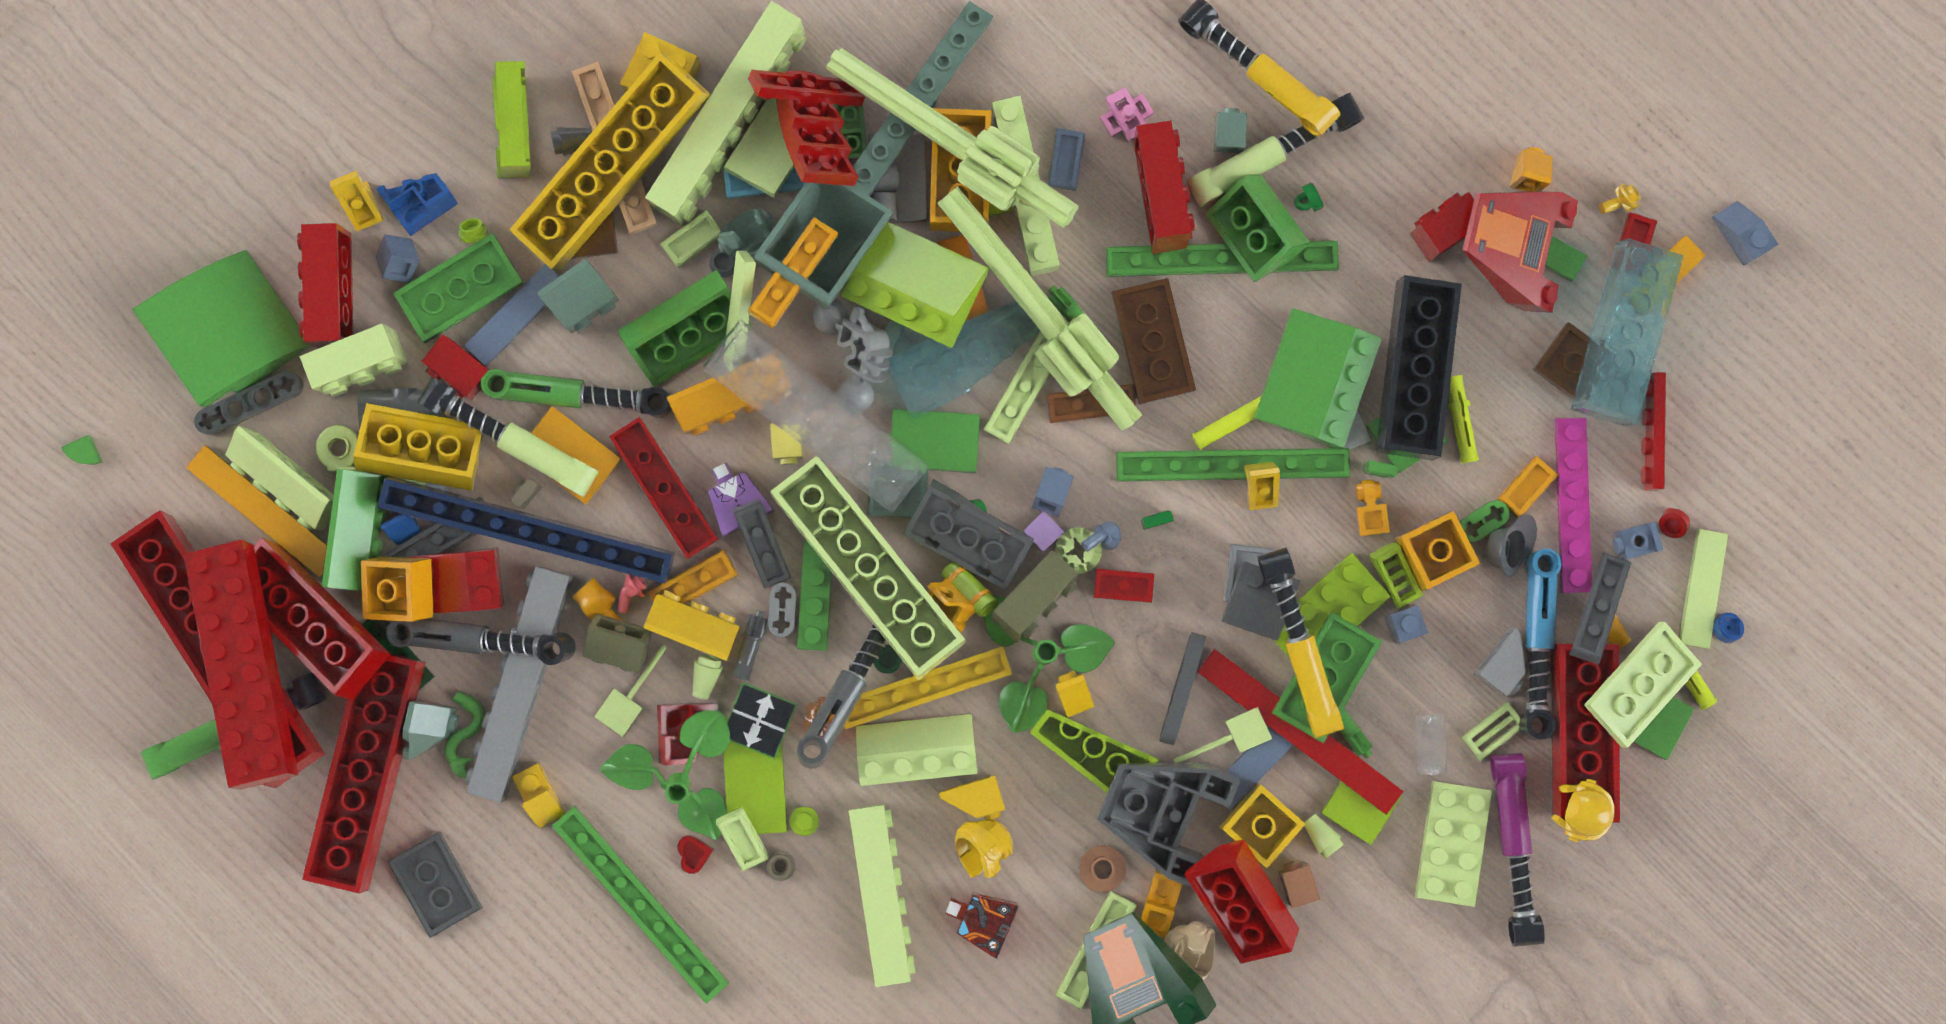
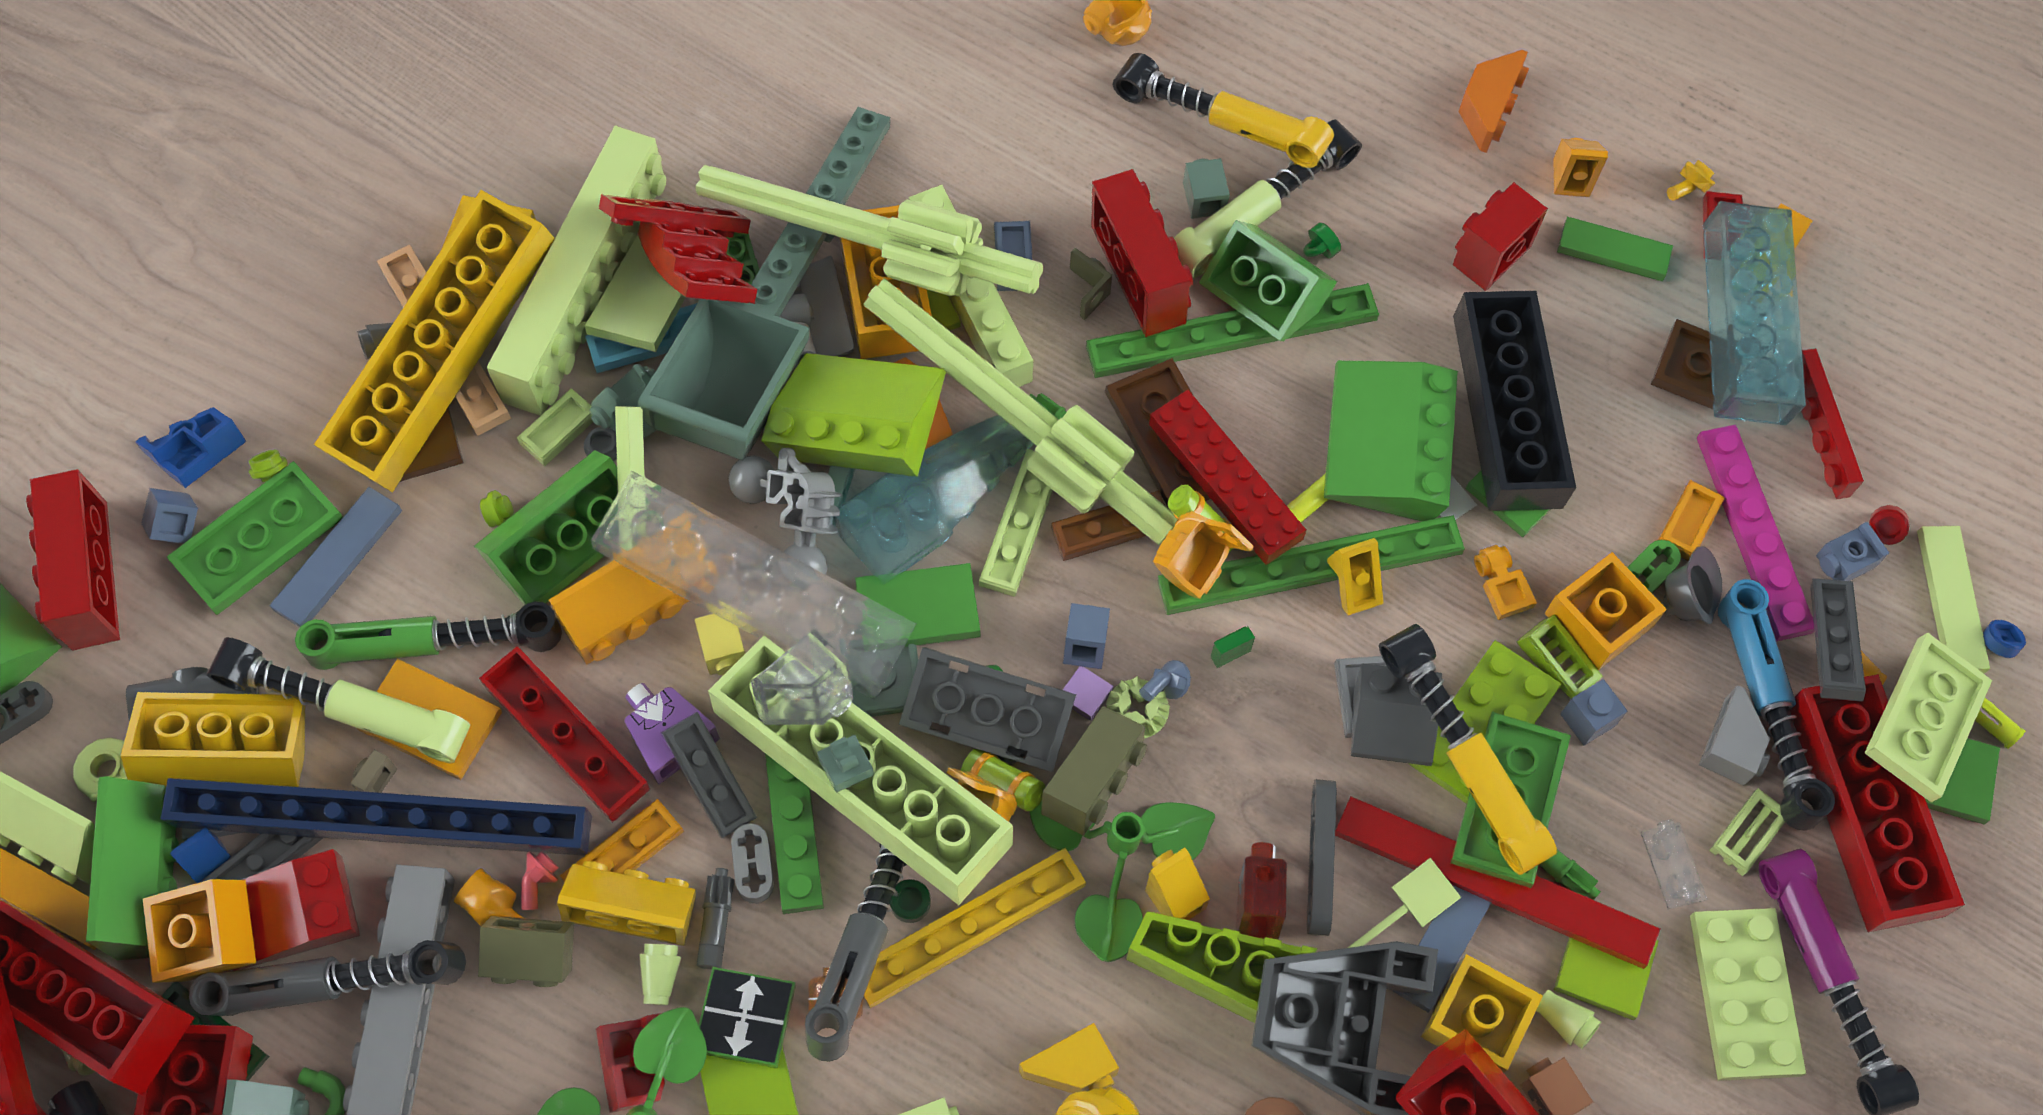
camera: 15 degrees left, 20 degrees down
(354, 360) = (116, 644): yellowish green brick -> none
(356, 200) = (108, 454): yellow slope -> none
(455, 366) = (261, 627): red brick -> none
(511, 119) = (305, 322): lime piece -> none
(579, 296) = (413, 505): sand green slope -> none
(619, 710) = (543, 1048): yellowish green piece -> none
(637, 301) = (496, 508): none -> lime plate
(803, 259) = (705, 393): light orange tile -> none
(839, 511) = (804, 684): none -> clear slope
(857, 570) = (845, 763): none -> sand green tile
(916, 750) = (976, 1017): yellowish green slope -> none
(1124, 585) = (1209, 739): red plate -> none
(1125, 112) = (1070, 191): bright pink piece -> none
(1126, 191) = (1096, 275): none -> olive bracket
(1127, 720) = (1262, 893): none -> clear red torso
(1149, 440) = (1197, 544): none -> light orange piece
(1184, 387) = (1227, 476): none -> red piece
(1380, 469) = (1501, 530): bright green tile -> none
(1461, 420) = (1587, 461): neon yellow pin -> none
(1481, 92) = (1491, 95): none -> orange slope
(1511, 243) = (1584, 232): red wedge -> none
(1587, 813) = (1922, 890): yellow helmet -> none
(1744, 232) = (1850, 188): sand blue slope -> none

